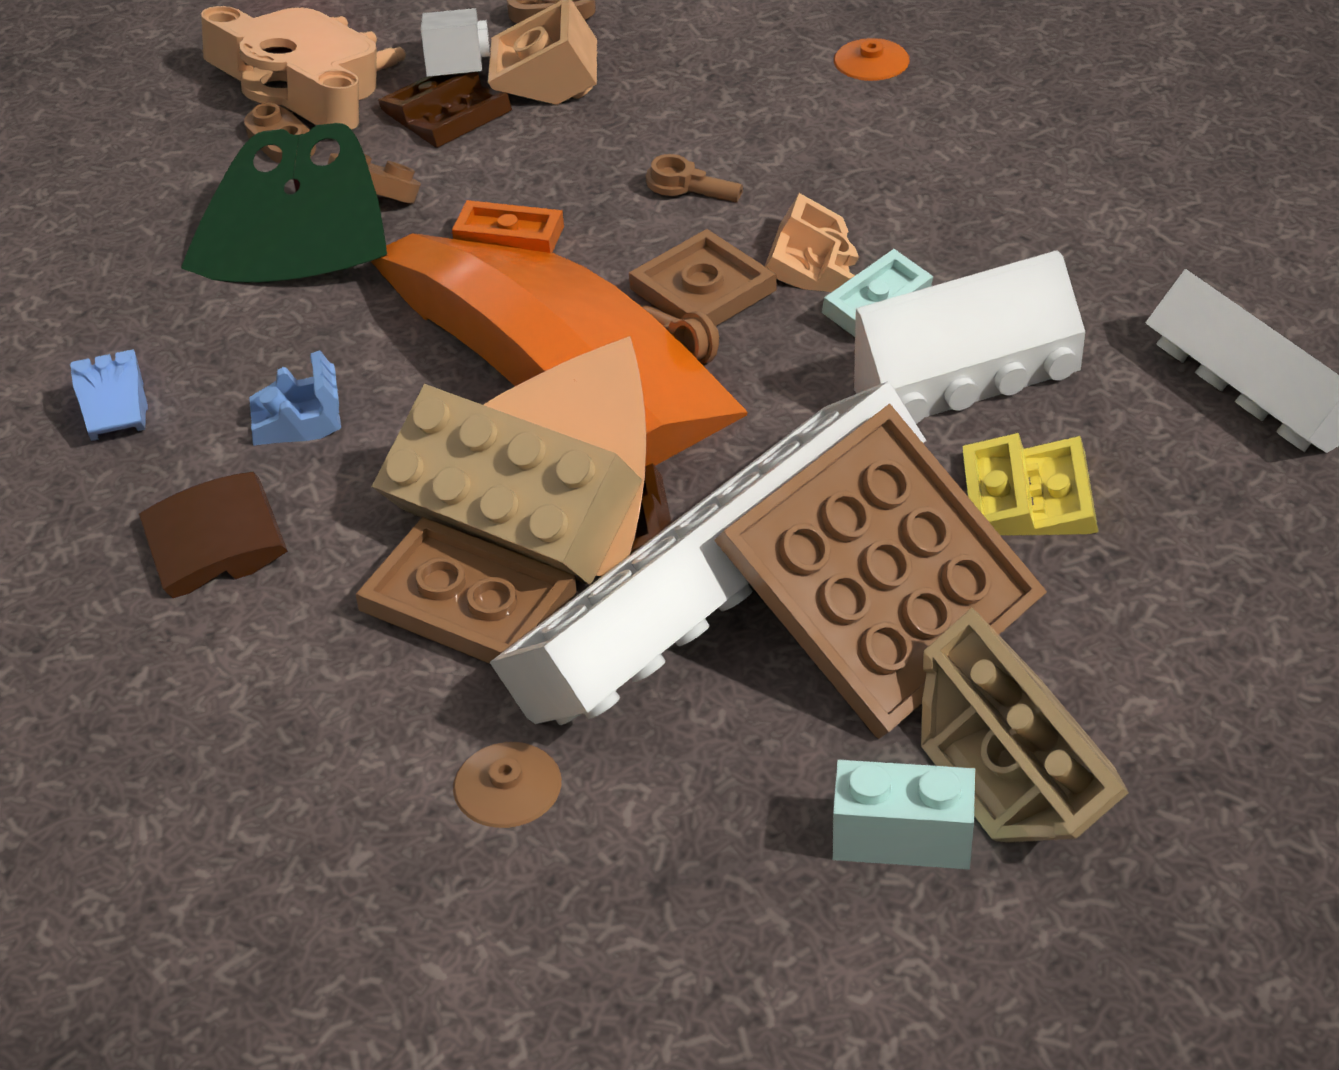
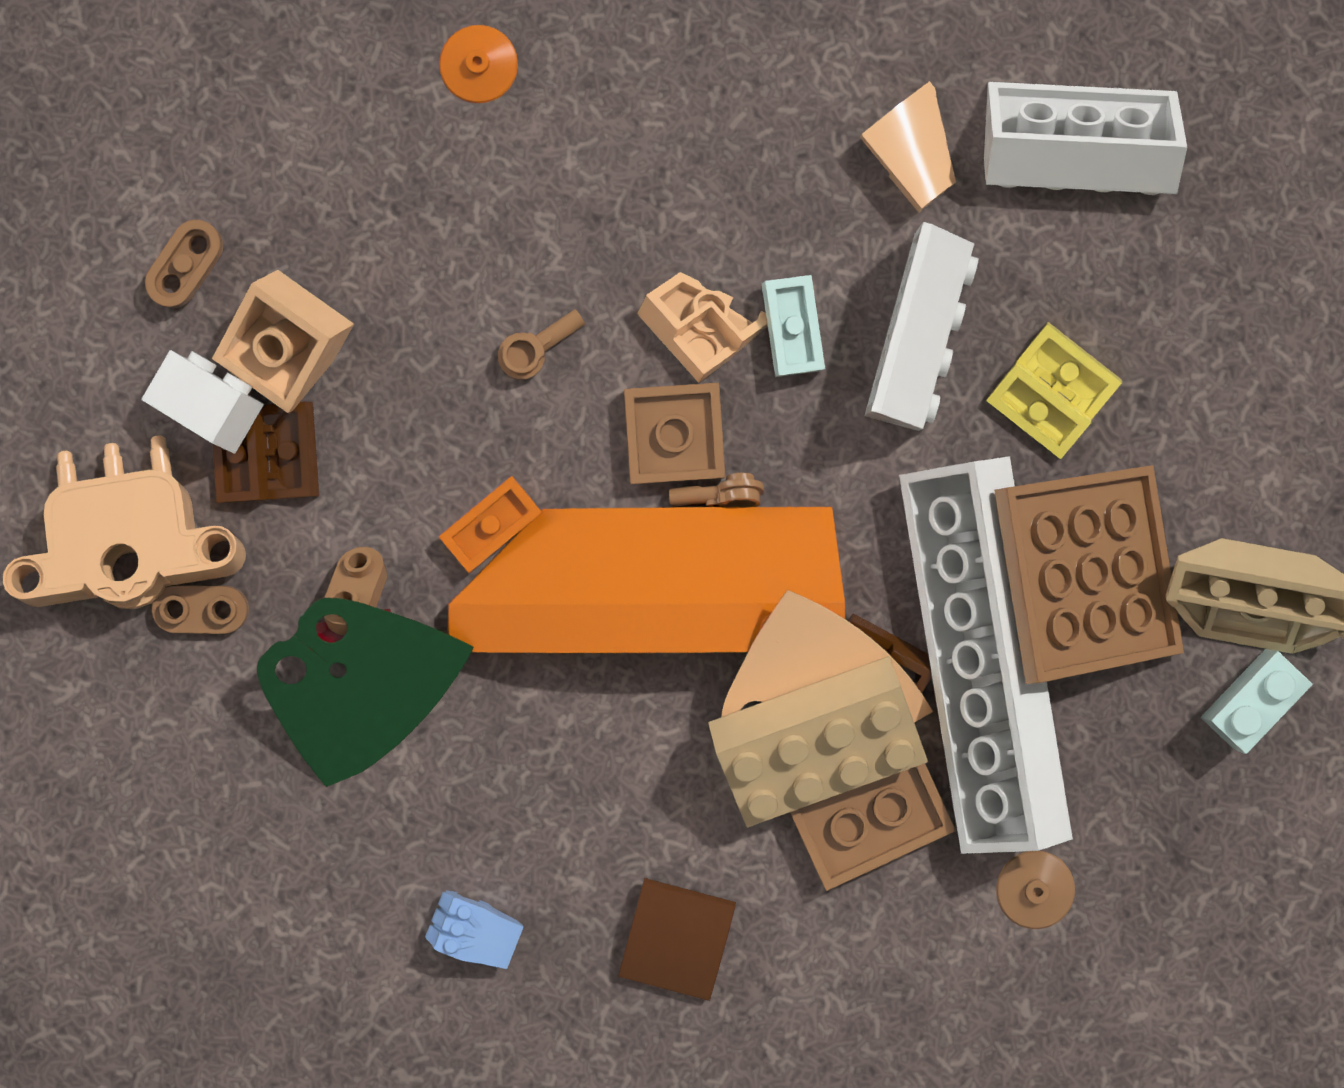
camera: 55 degrees left, 45 degrees up
(297, 408) = (587, 810): light blue hand -> none
(1118, 280) = (914, 147): none -> light nougat slope

